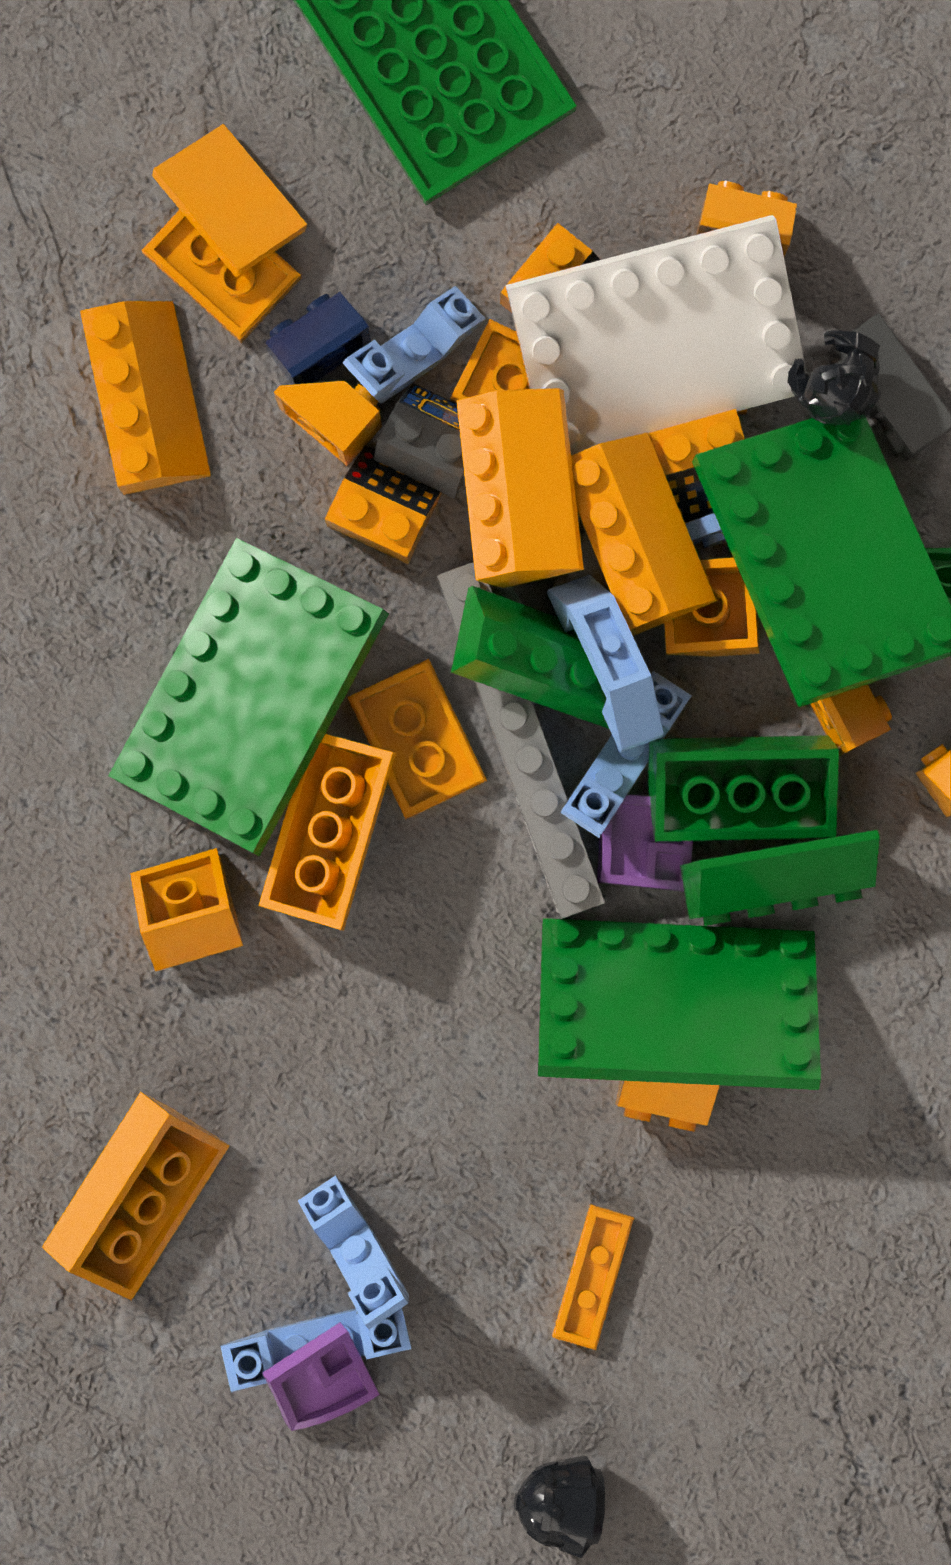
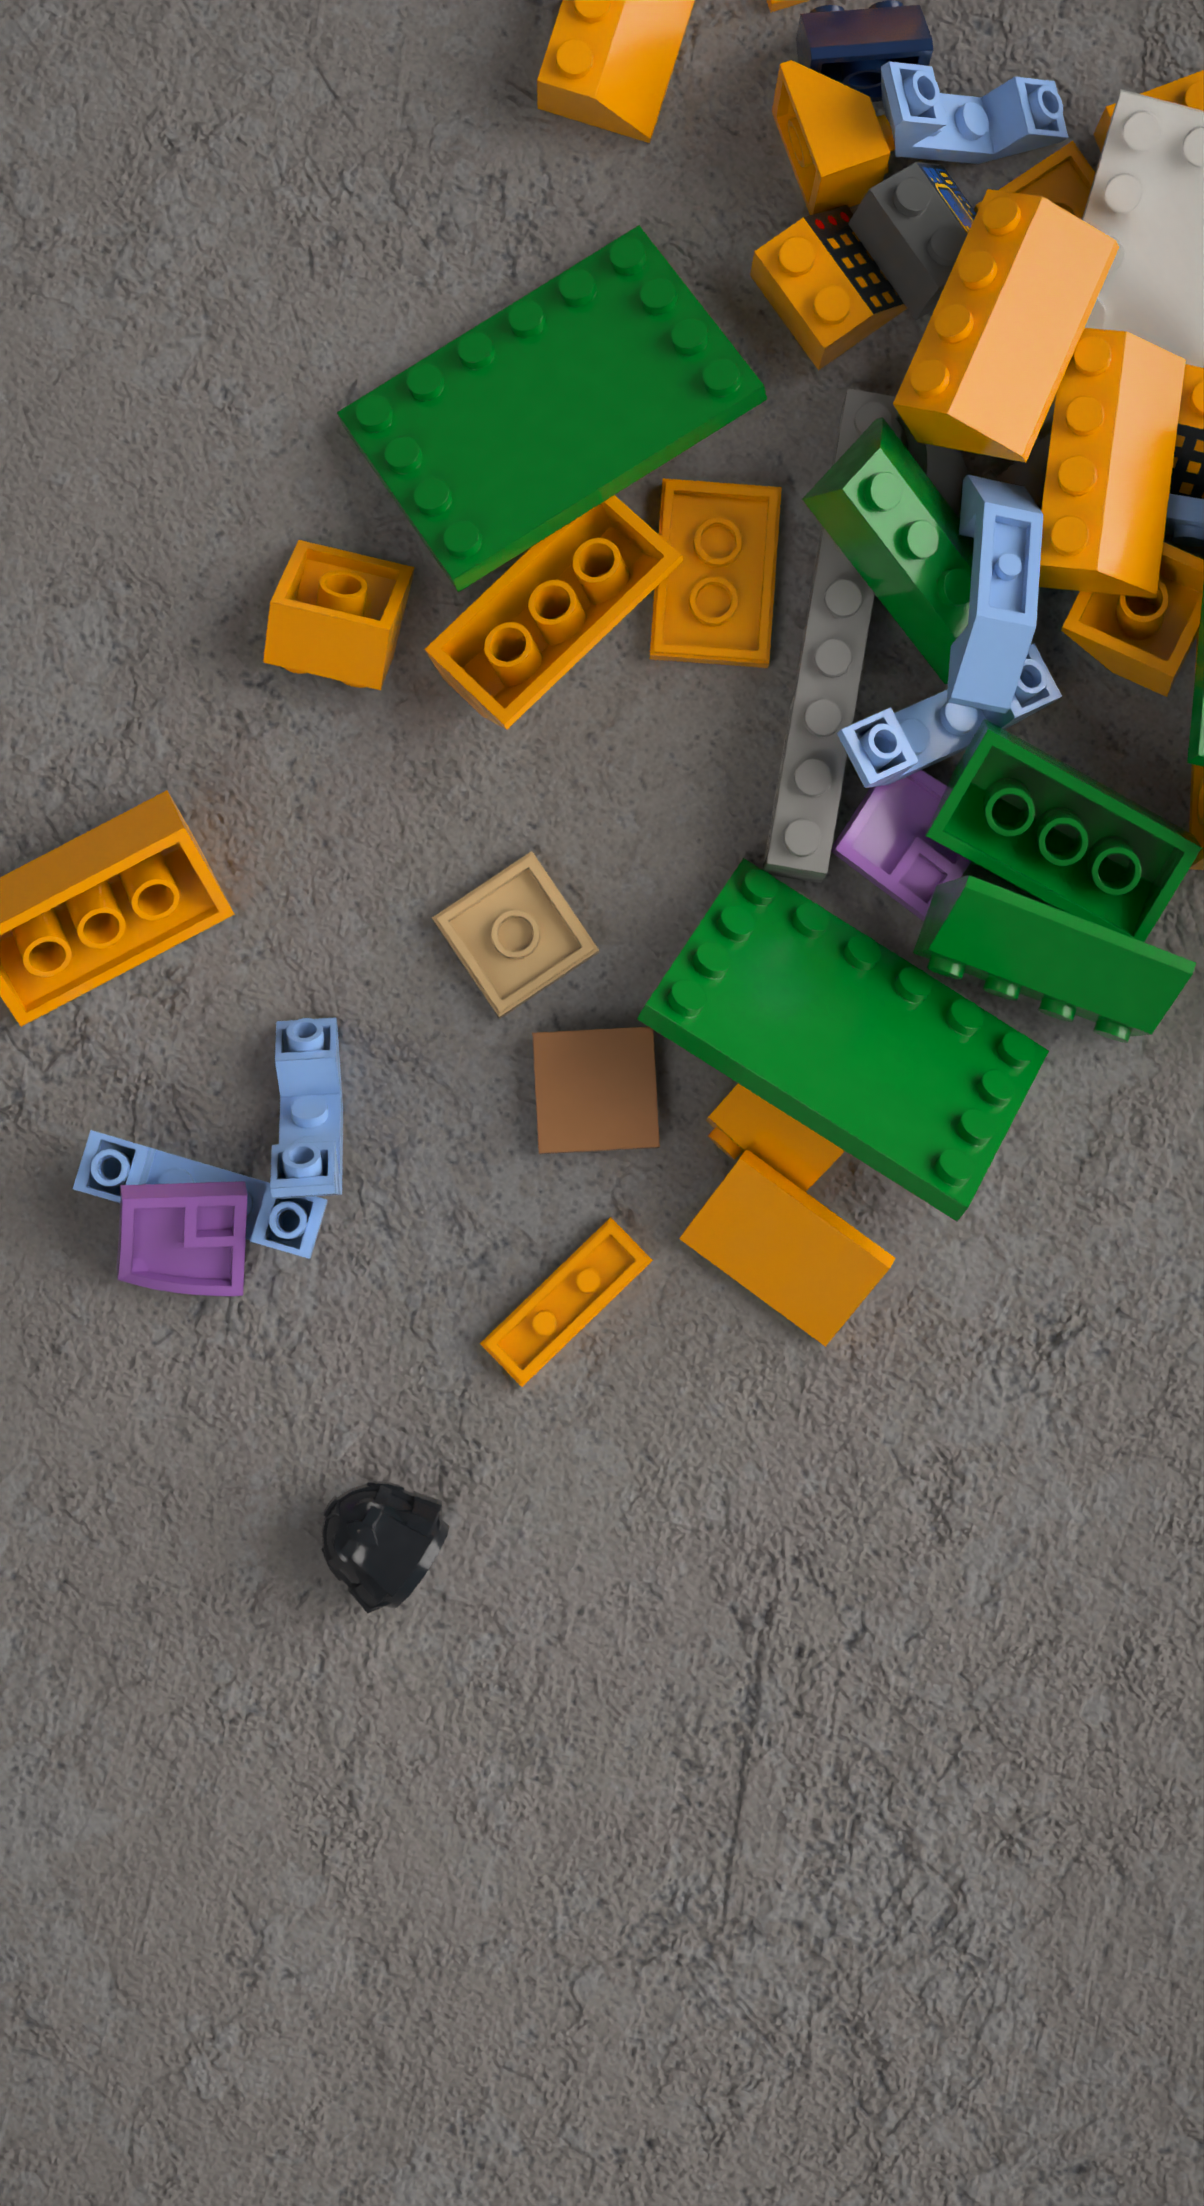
camera: 20 degrees right, 0 degrees up
(422, 1054) = (515, 934): none -> tan tile
(532, 1127) = (595, 1090): none -> medium nougat tile
(717, 1161) = (787, 1248): none -> light orange tile

